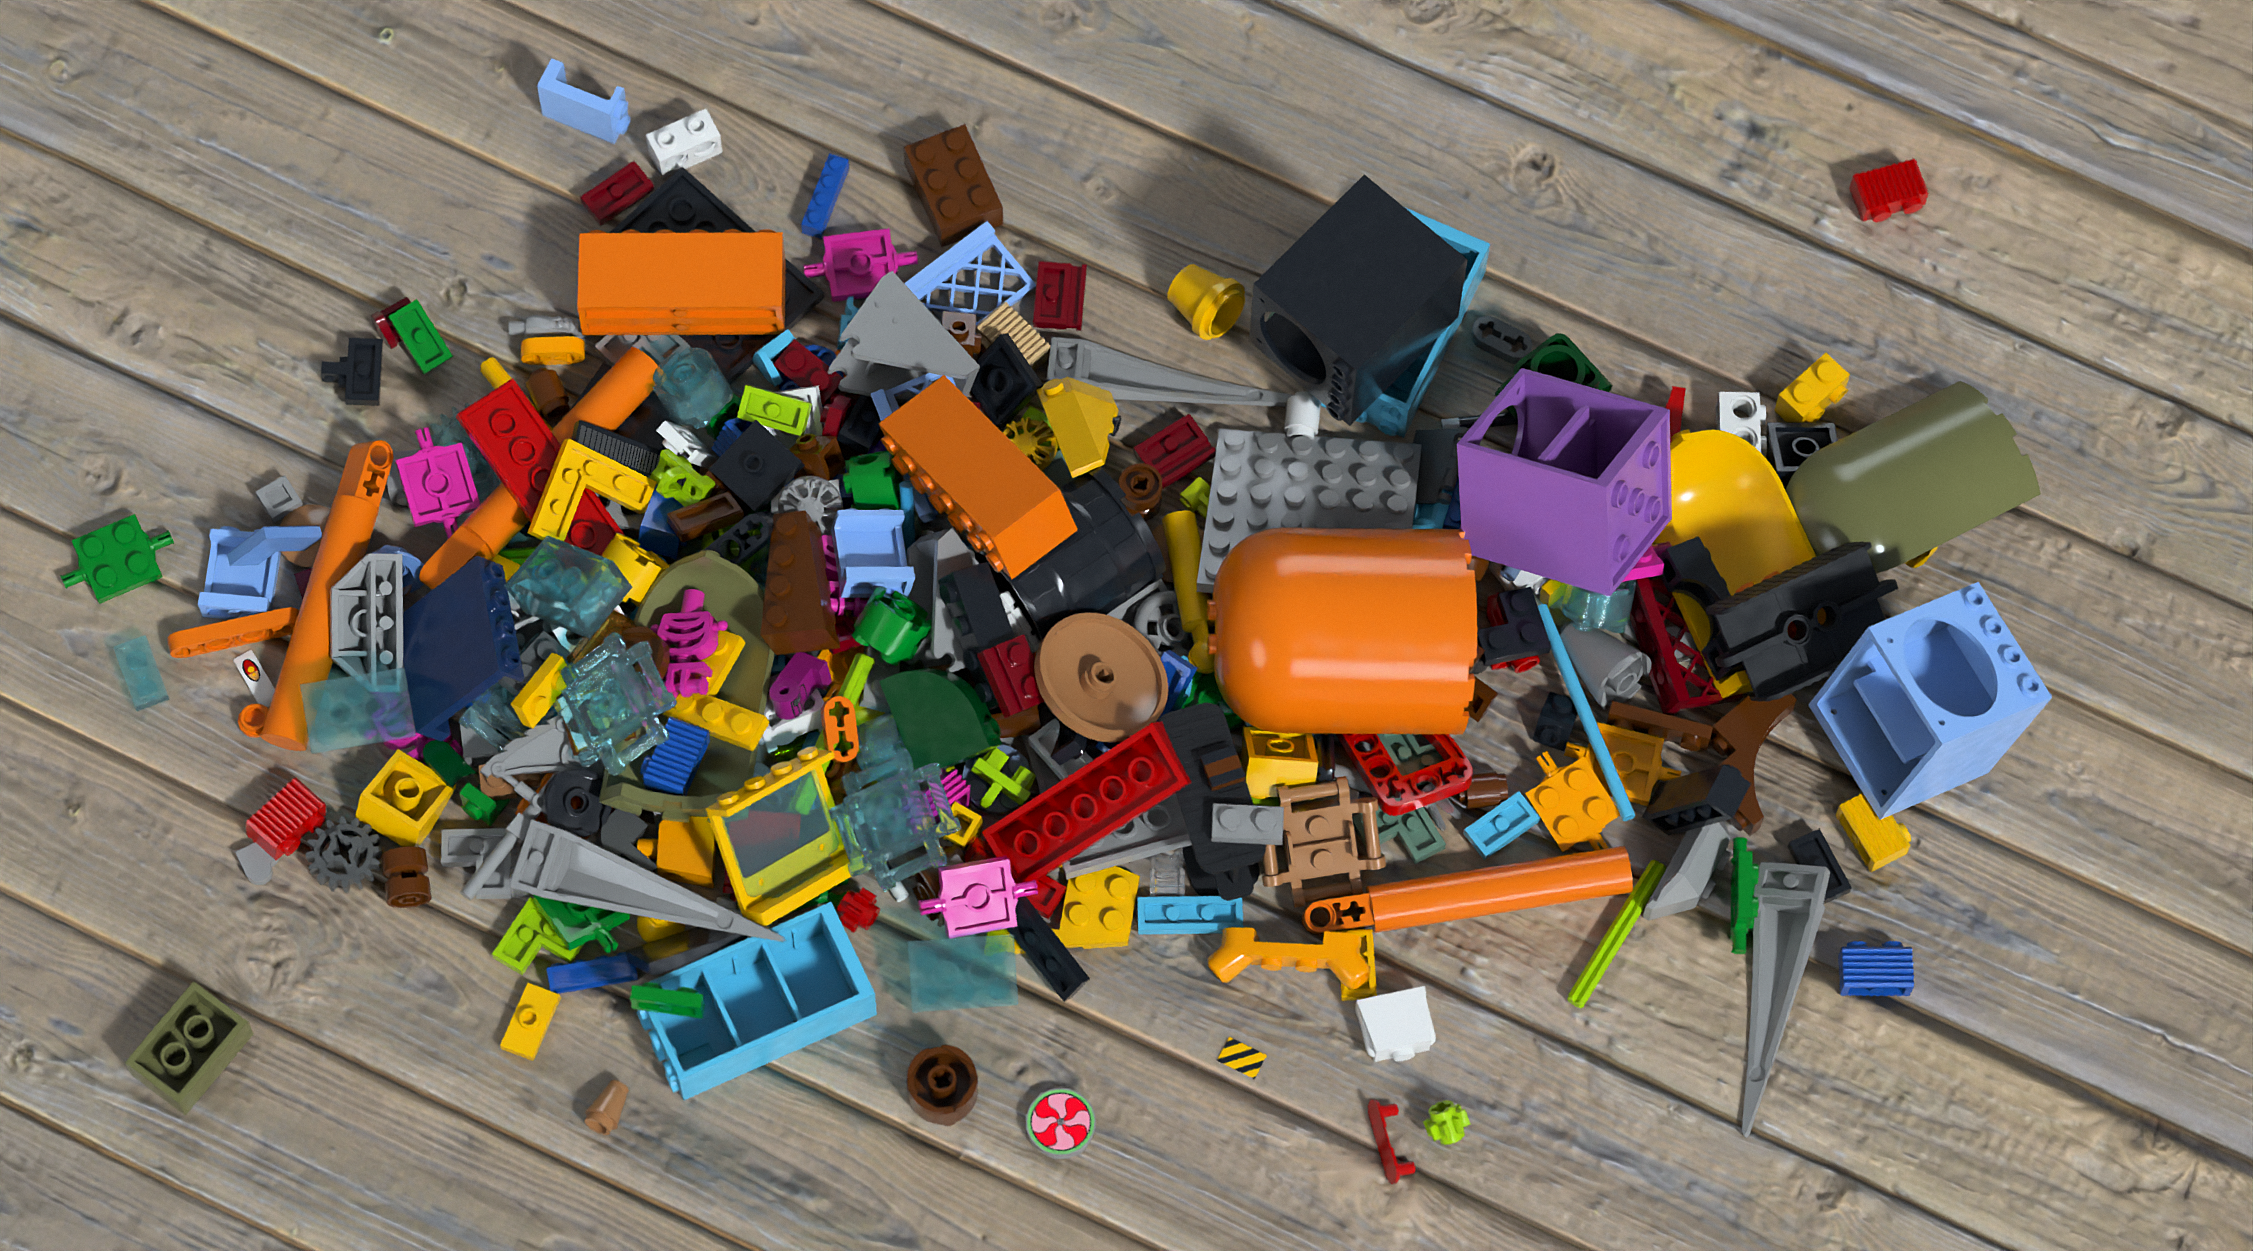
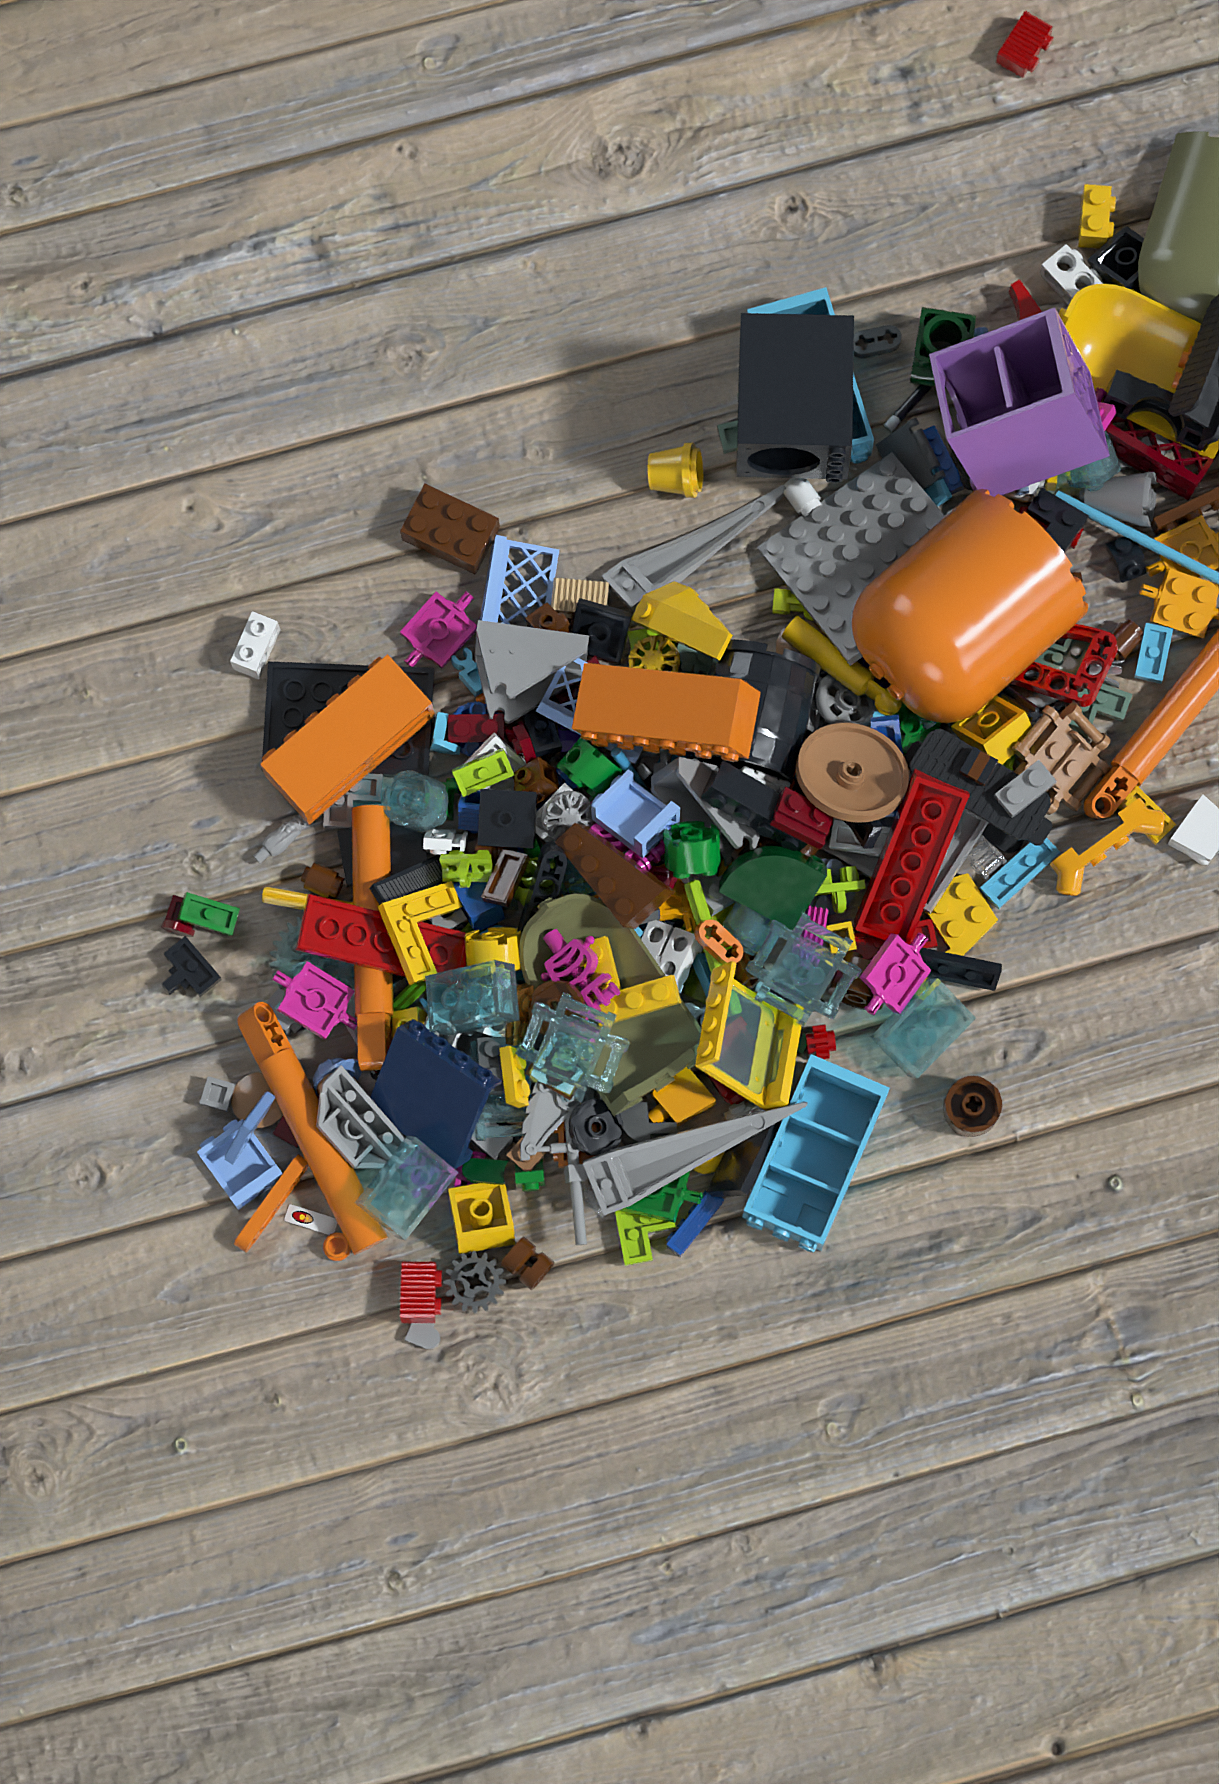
camera: 35 degrees left, 10 degrees up
(117, 558) = (151, 1220): green plate -> none
(141, 673) = (237, 1279): clear light blue plate -> none
(189, 1048) = (497, 1486): olive brick -> none
(472, 848) = (554, 1205): light grey plate -> none
(530, 1021) = (685, 1285): yellow plate -> none
(552, 350) = (298, 850): light orange beam -> none
(581, 109) = (170, 679): light blue panel -> none
(606, 1110) = (783, 1298): medium nougat cone -> none
(617, 193) = (242, 713): dark red plate -> none
(656, 999) = (783, 1195): green plate -> none
(676, 760) = (641, 1057): blue brick -> none
(797, 683) = (665, 936): magenta leg -> none
(825, 196) = (374, 603): blue piece -> none
(1059, 296) = (581, 544): dark red plate -> none
(1060, 1123) = (1059, 1067): tile -> none
(1142, 490) = (749, 625): reddish brown wheel -> none
(1176, 450) = (743, 585): dark red plate -> none
(1241, 1058) = (1128, 932): sticker -> none

